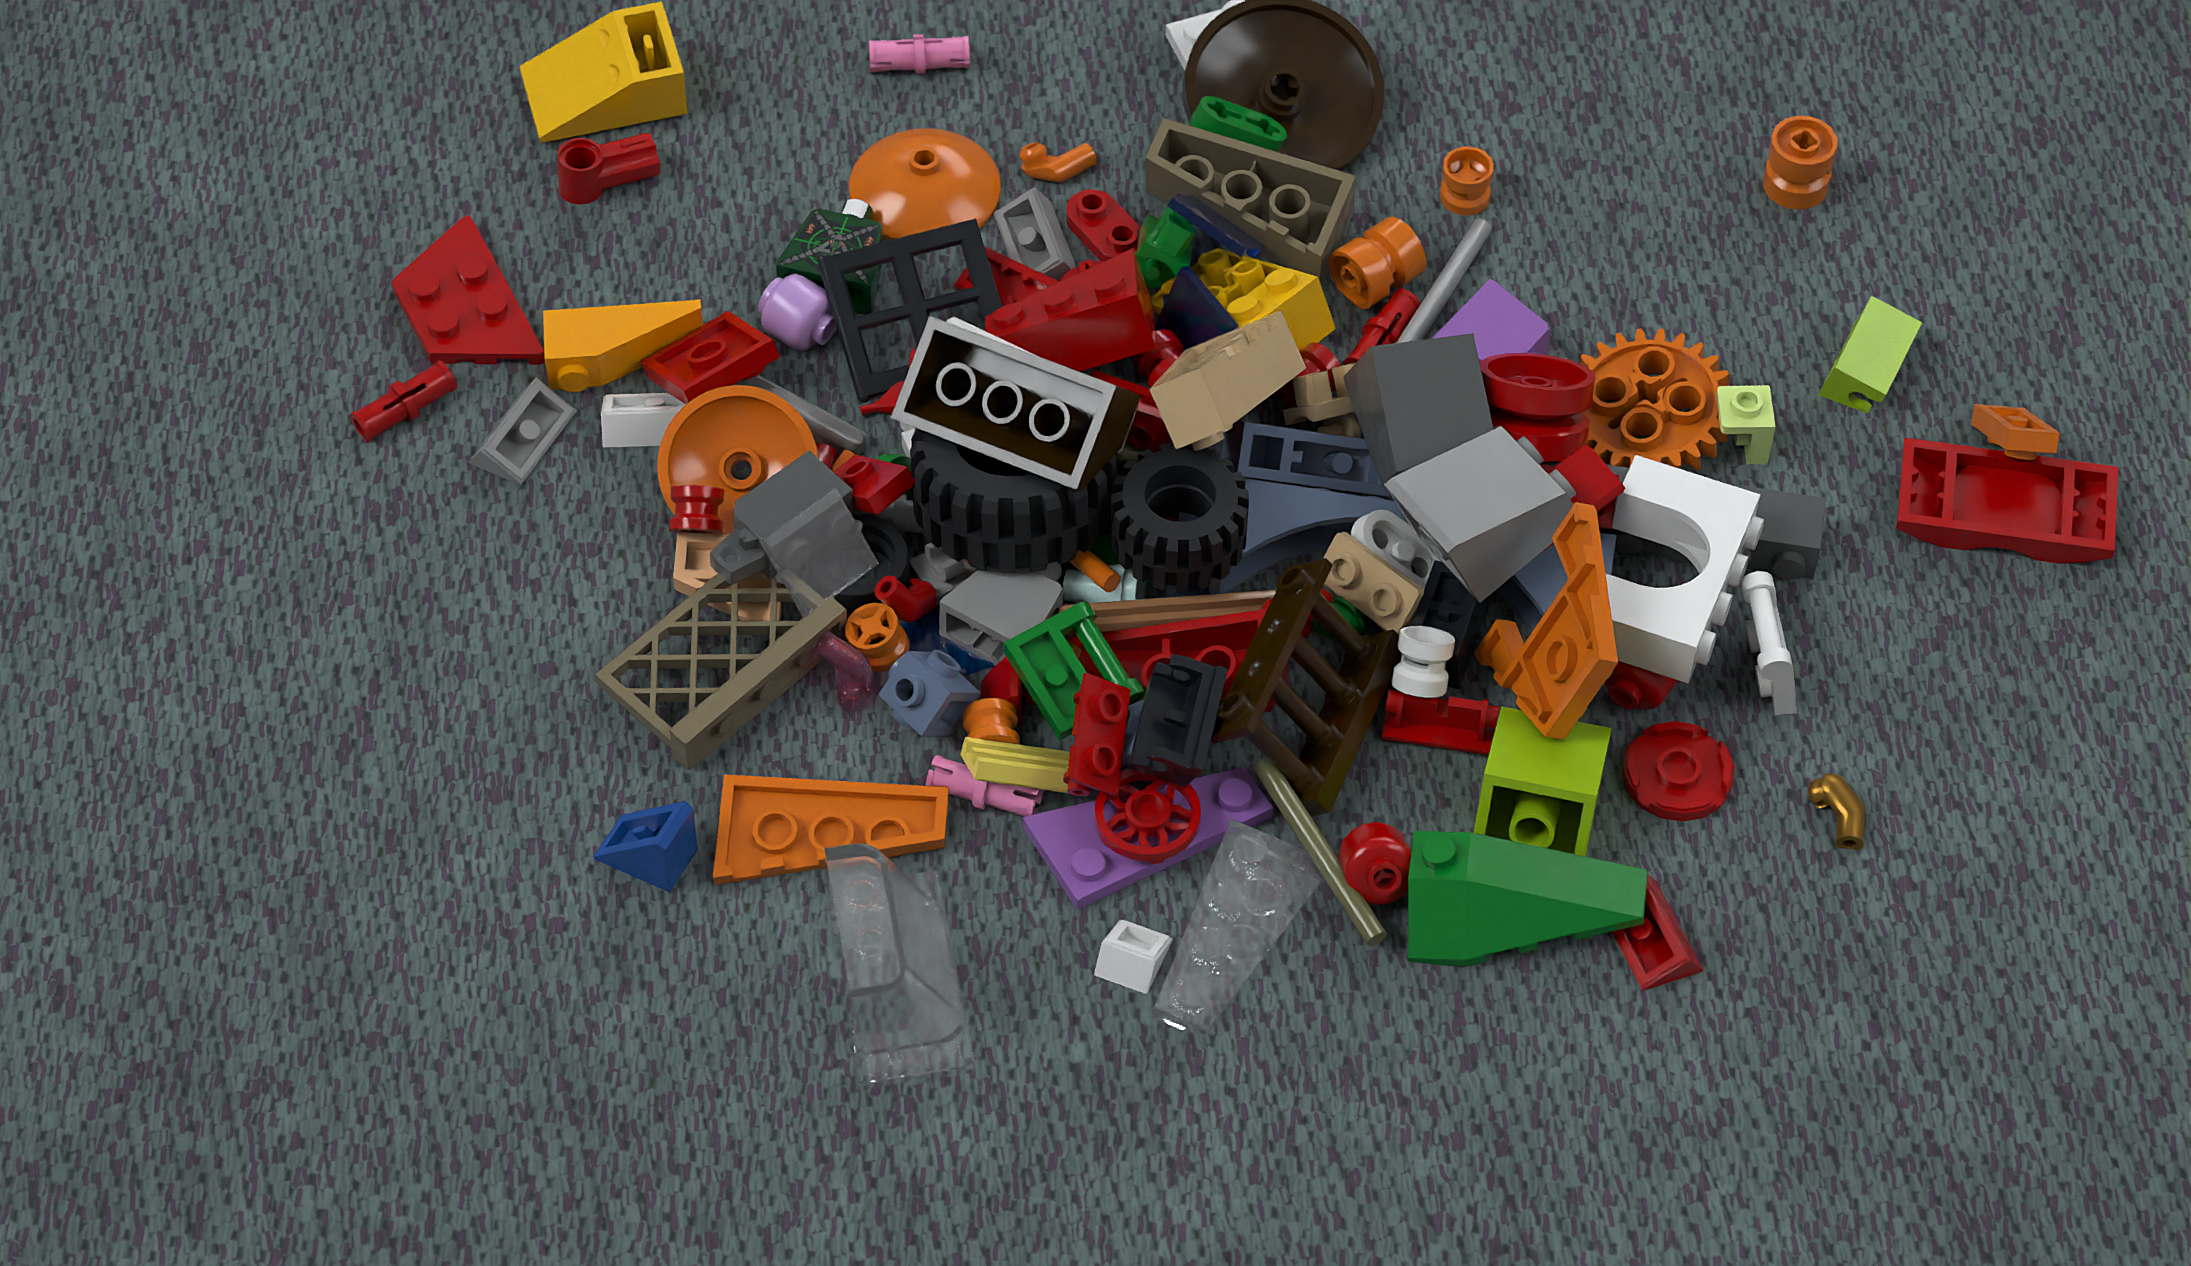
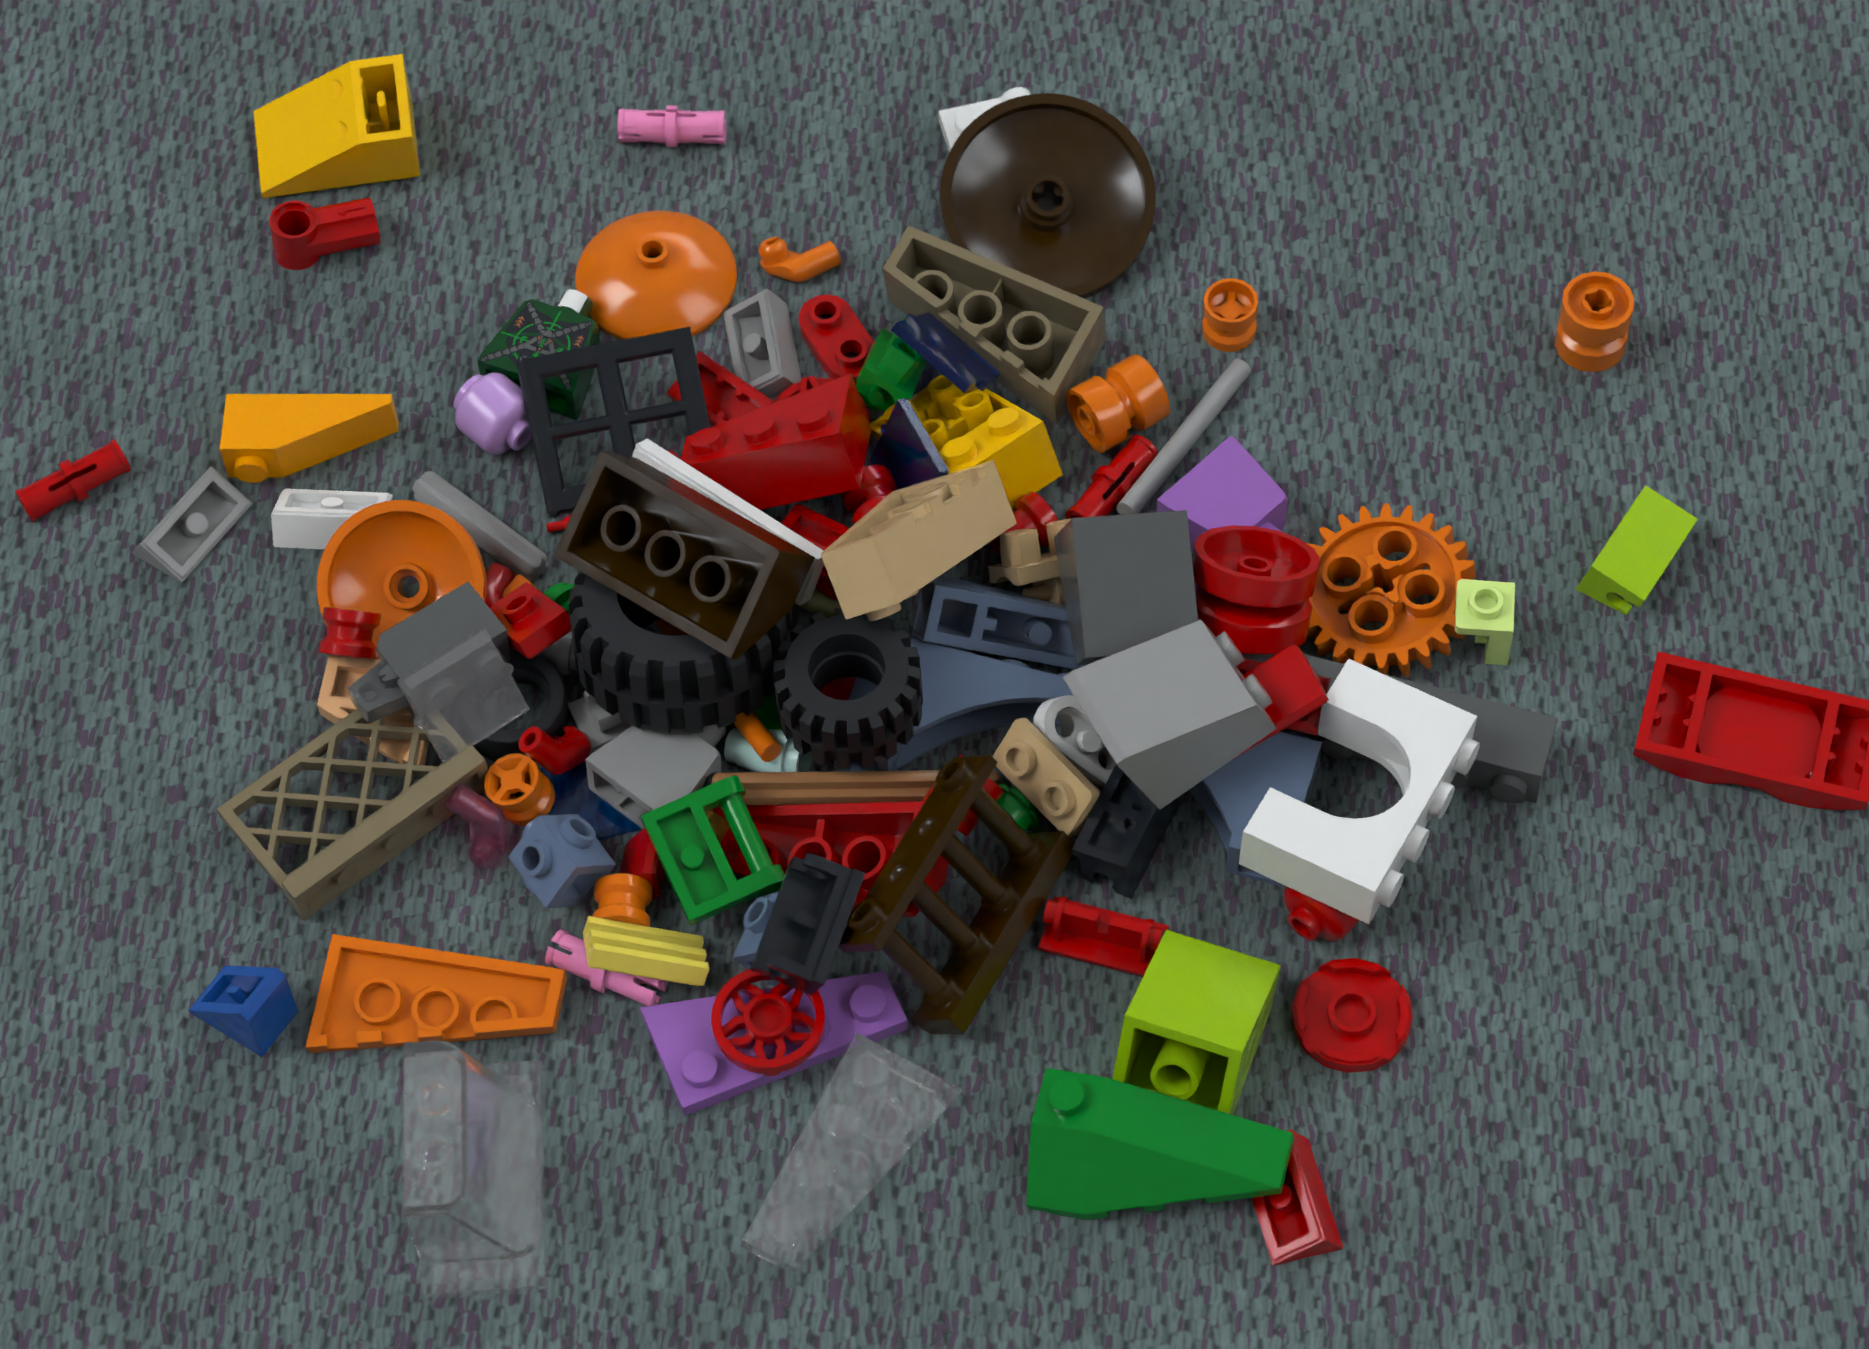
camera: 10 degrees right, 5 degrees up
(464, 303) = (153, 373): red wing -> none
(711, 358) = (394, 459): red plate -> none
(1099, 737) = (724, 932): red hinge -> none
(1132, 955) = (732, 1174): white slope -> none
(1238, 123) = (991, 237): green beam -> none
(1319, 851) = (947, 1080): olive bar -> none
(1376, 862) = (1002, 1091): red head -> none
(1423, 661) = (1088, 865): white wheel -> none
(1572, 643) = (1236, 882): orange wing -> none
(1766, 636) = (1469, 874): white plate -> none
(1847, 806) = (1528, 1072): pearl gold arm -> none
(2015, 430) = (1780, 653): orange plate -> none

